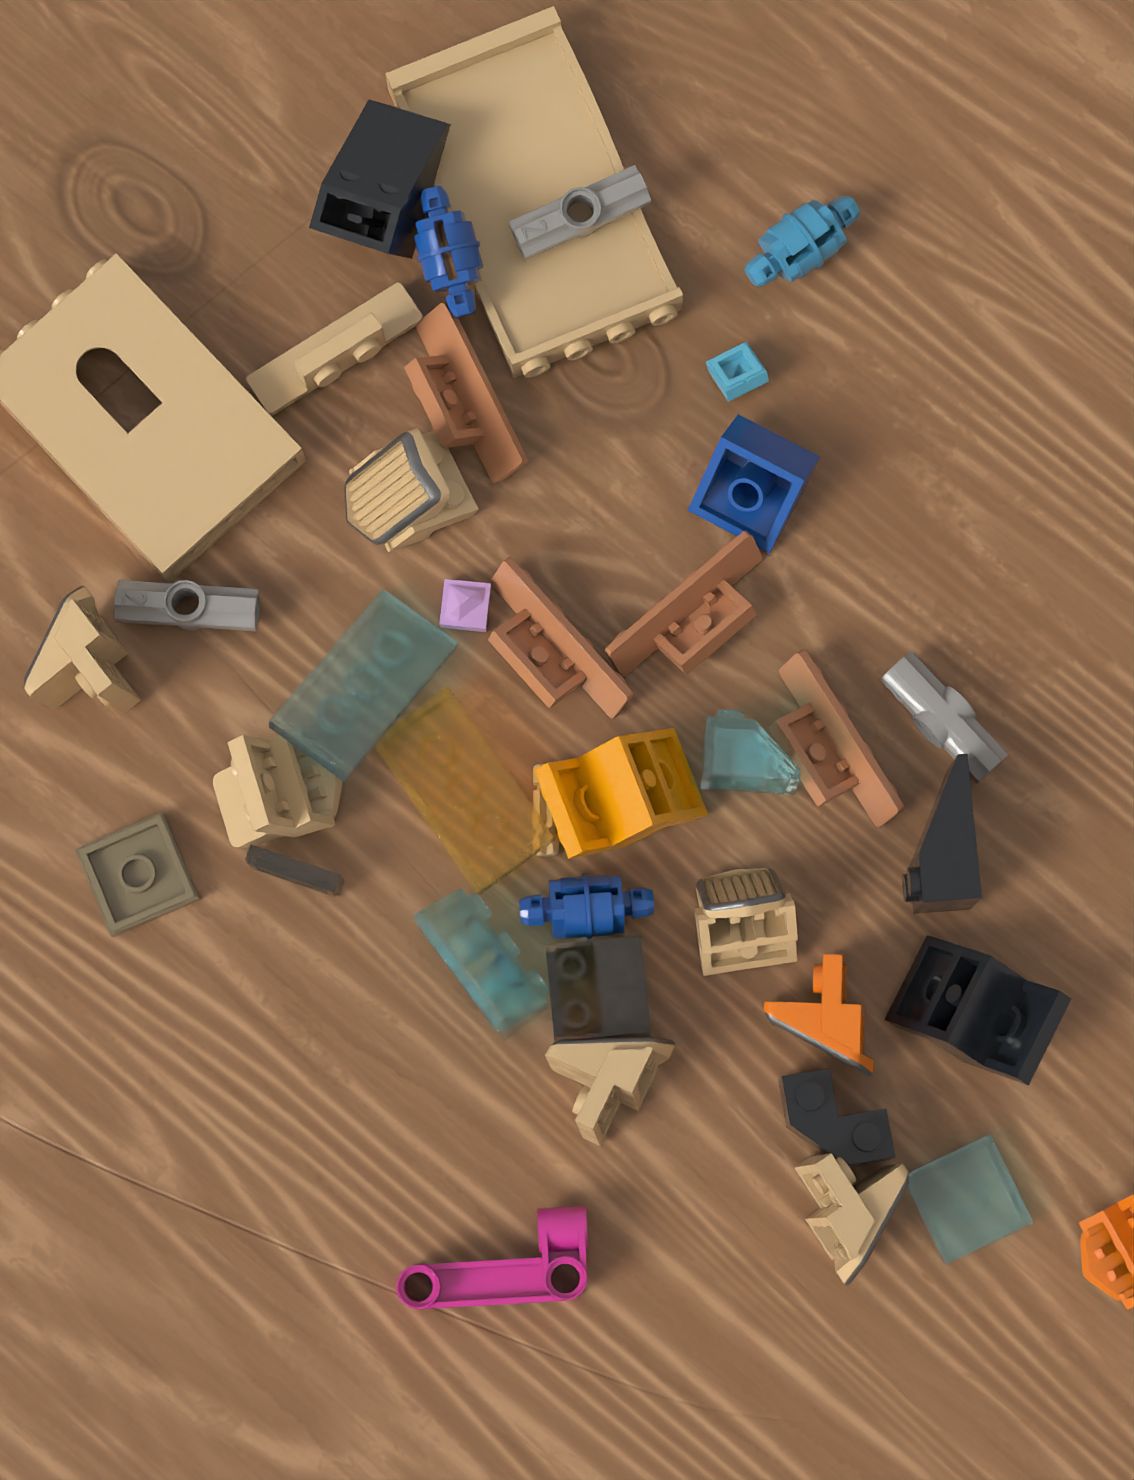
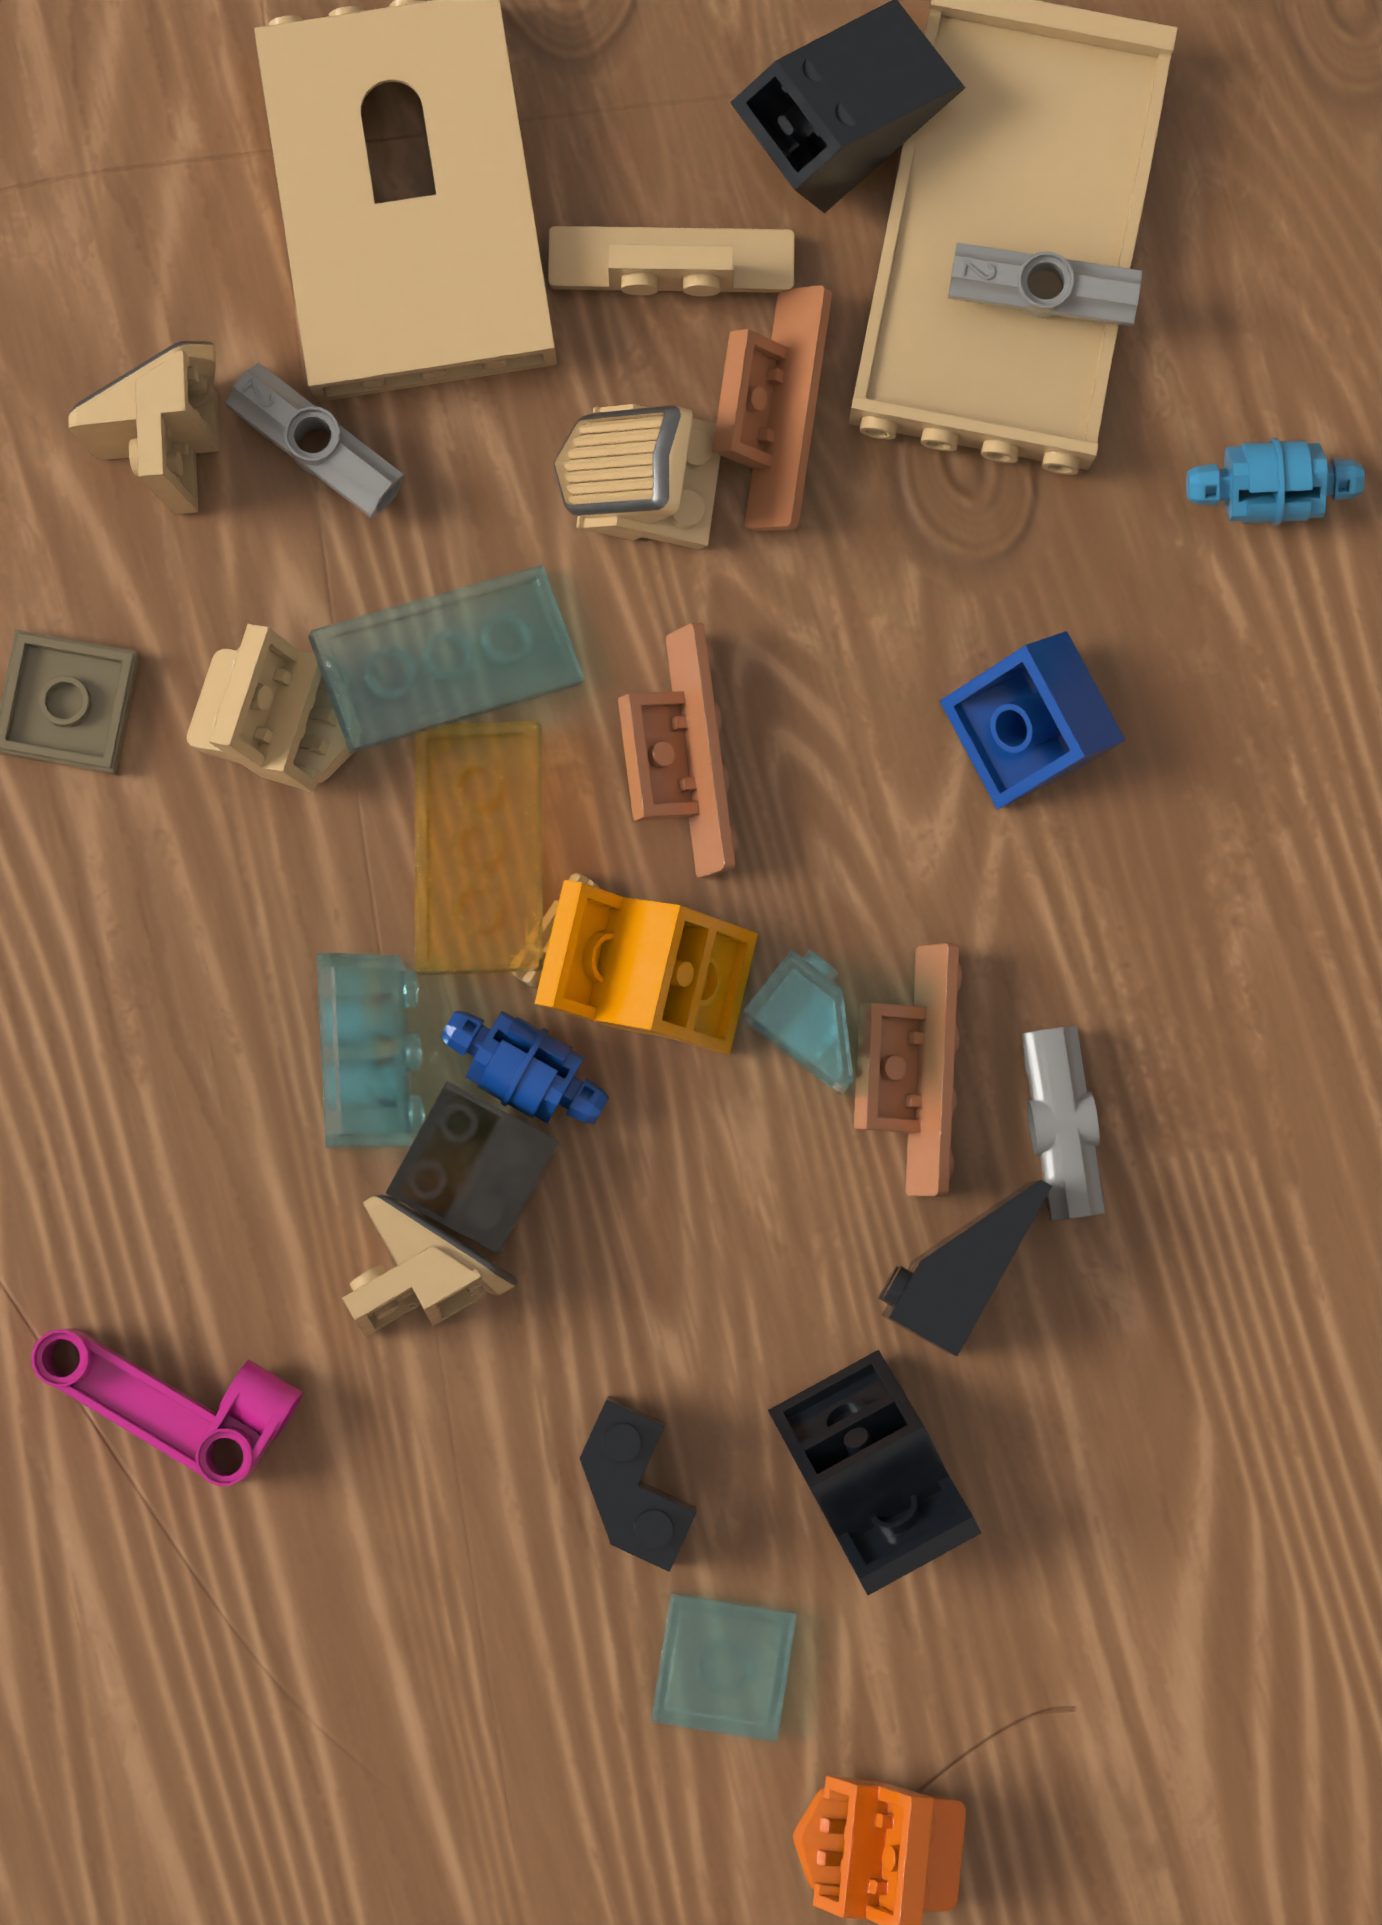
camera: 30 degrees right, 5 degrees up
(294, 871) = (234, 813): clear smoke tile -> none
(435, 255) = (866, 231): blue piece -> none
(465, 605) = (621, 643): lavender tile -> none
(694, 615) = (864, 825): nougat bracket -> none
(737, 371) = (1101, 581): medium azure tile -> none
(744, 921) = (685, 1198): tan piece -> none
(831, 1024) = (702, 1376): orange piece -> none
(850, 1215) = (584, 1599): tan piece -> none

